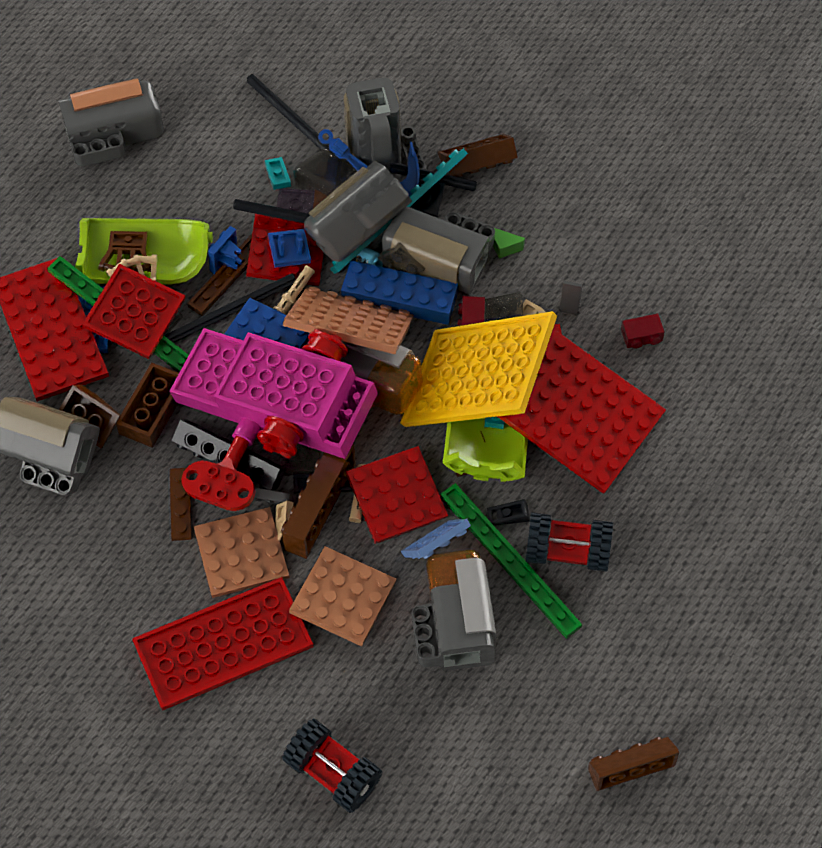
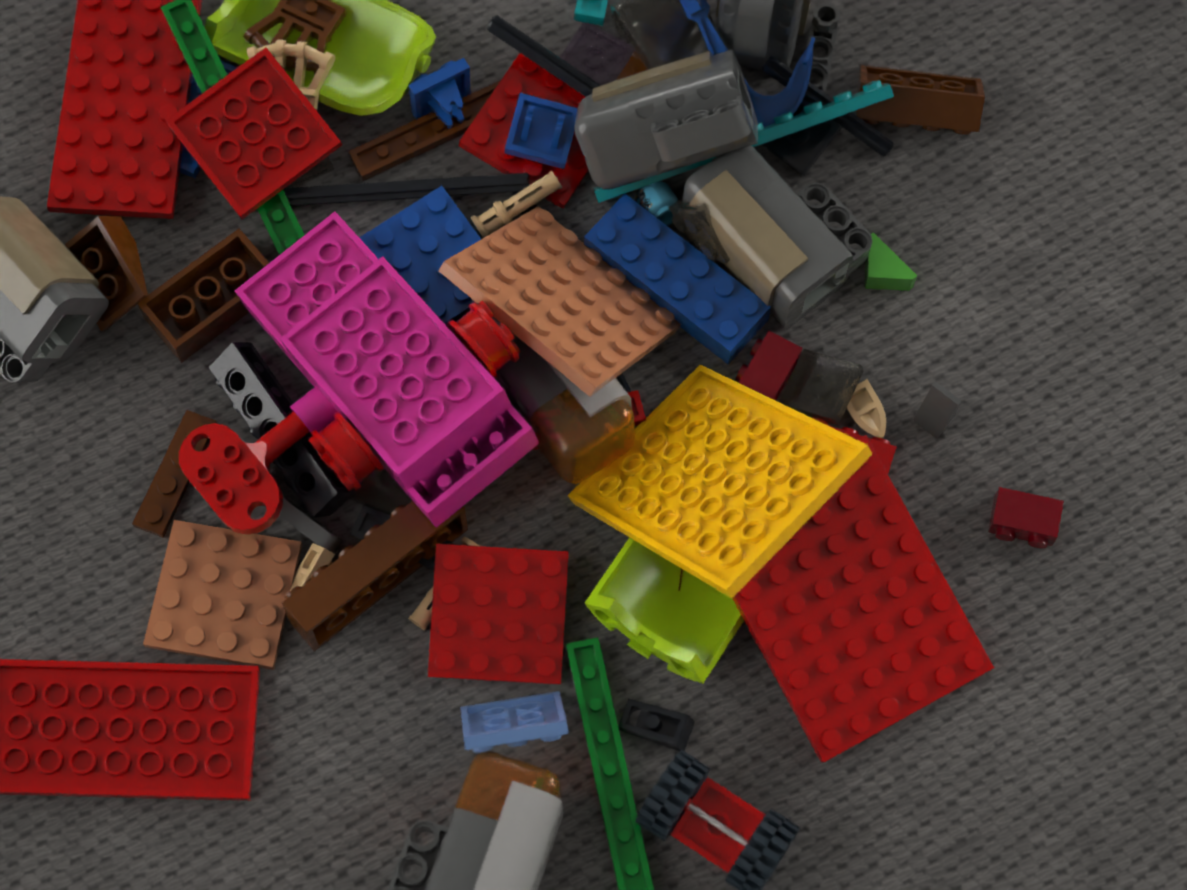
camera: 25 degrees right, 10 degrees up
(343, 596) = (333, 741): nougat plate -> none

